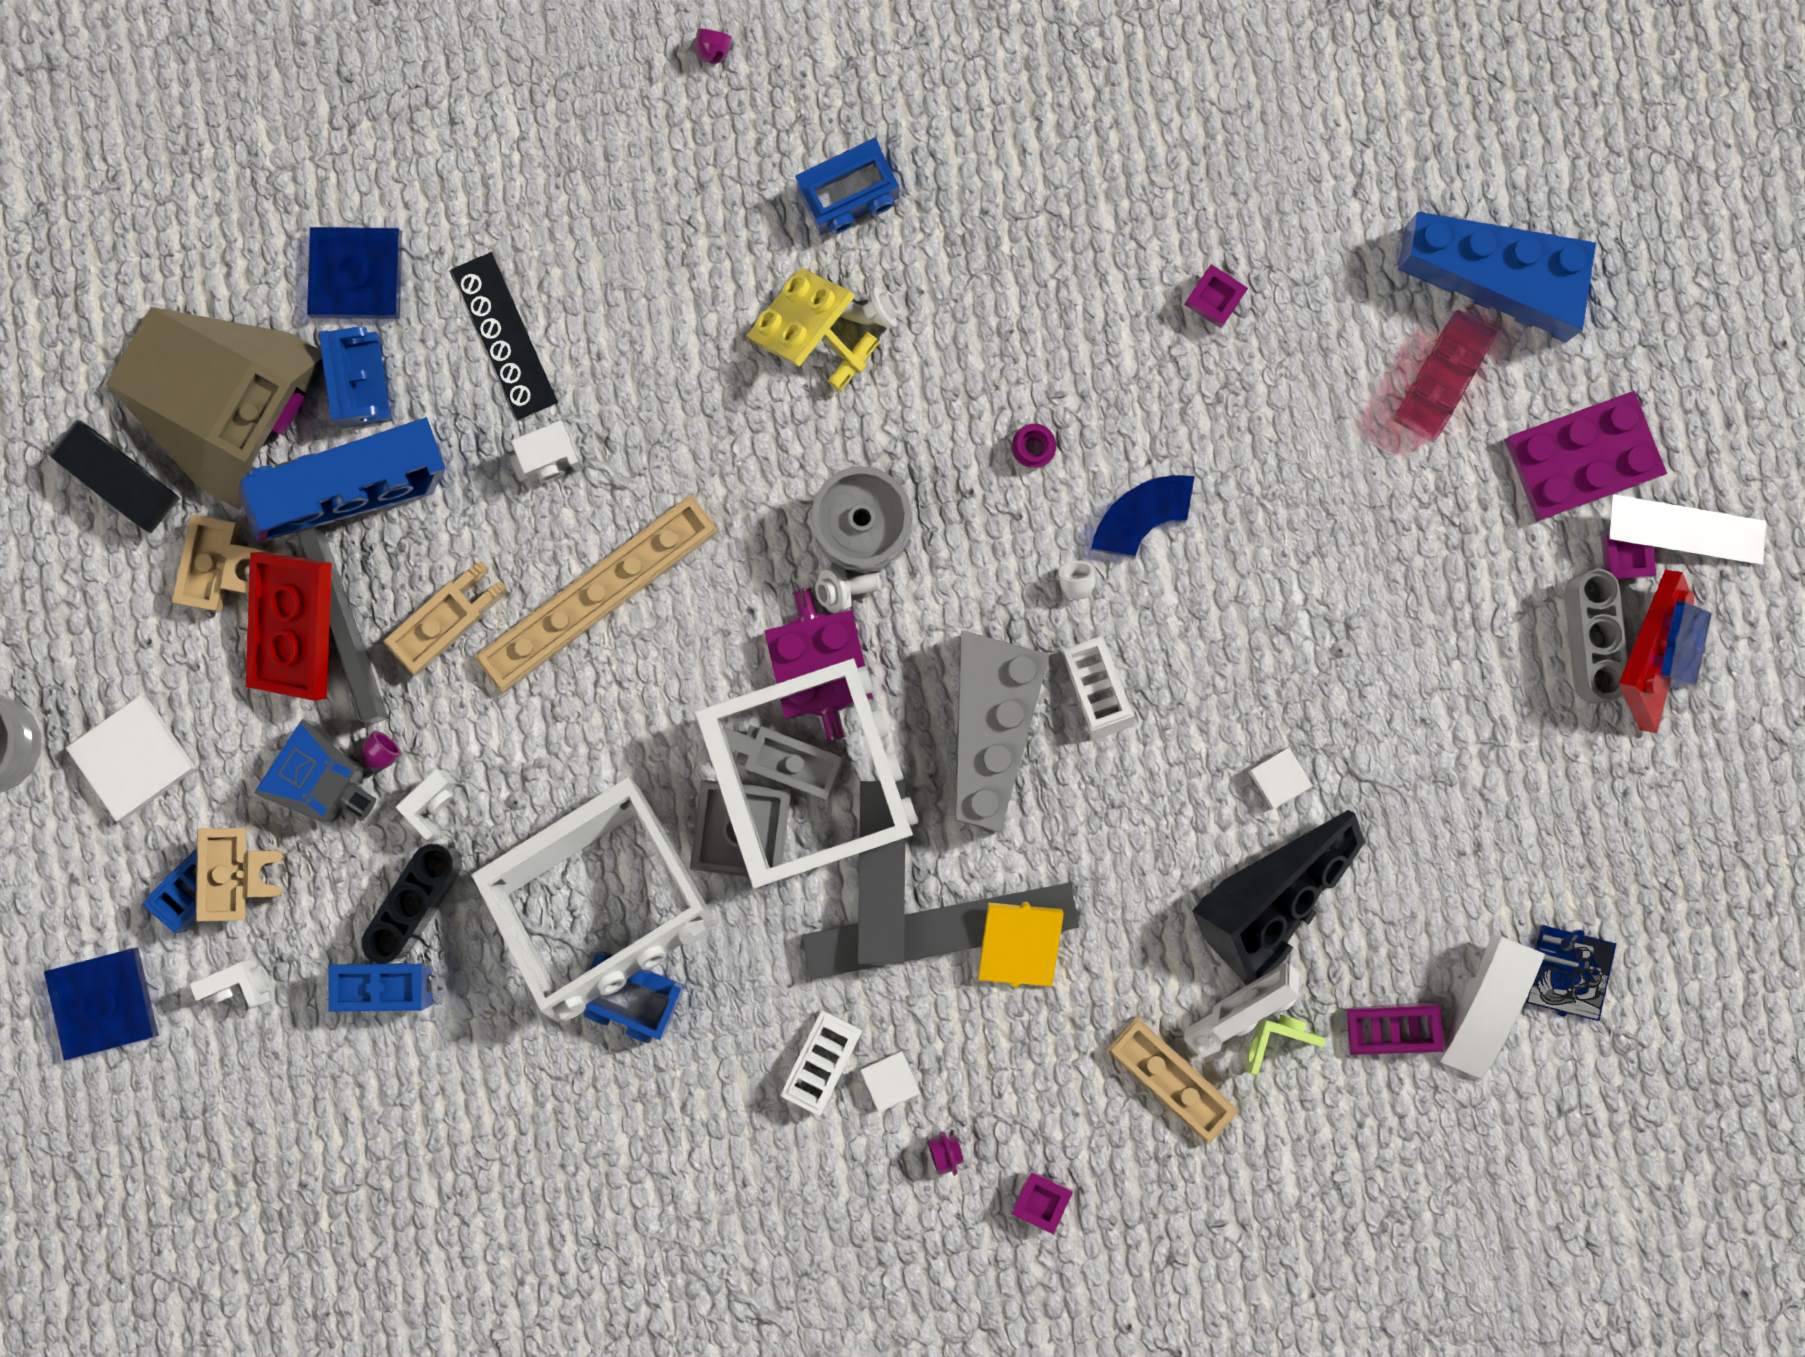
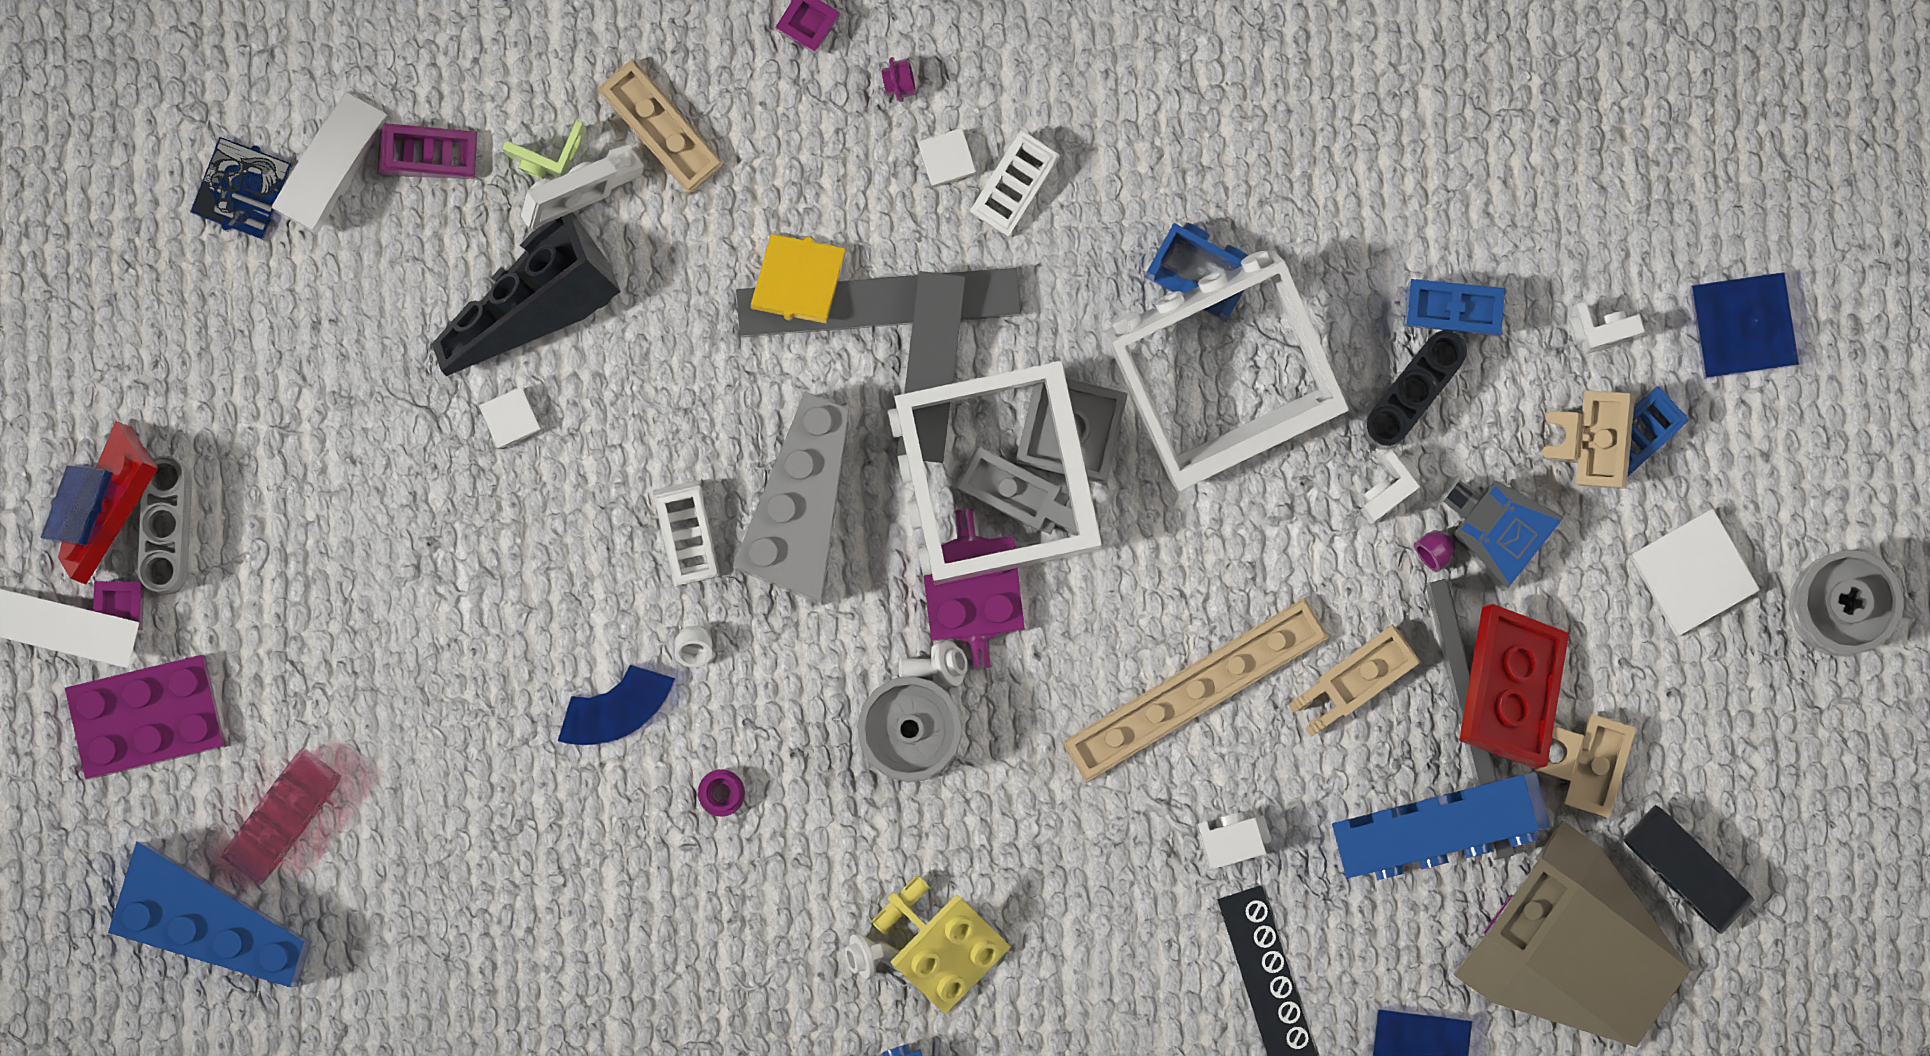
camera: 170 degrees left, 0 degrees up
(354, 377) = (1426, 946): blue hinge -> none
(1216, 296) = (509, 929): magenta plate -> none

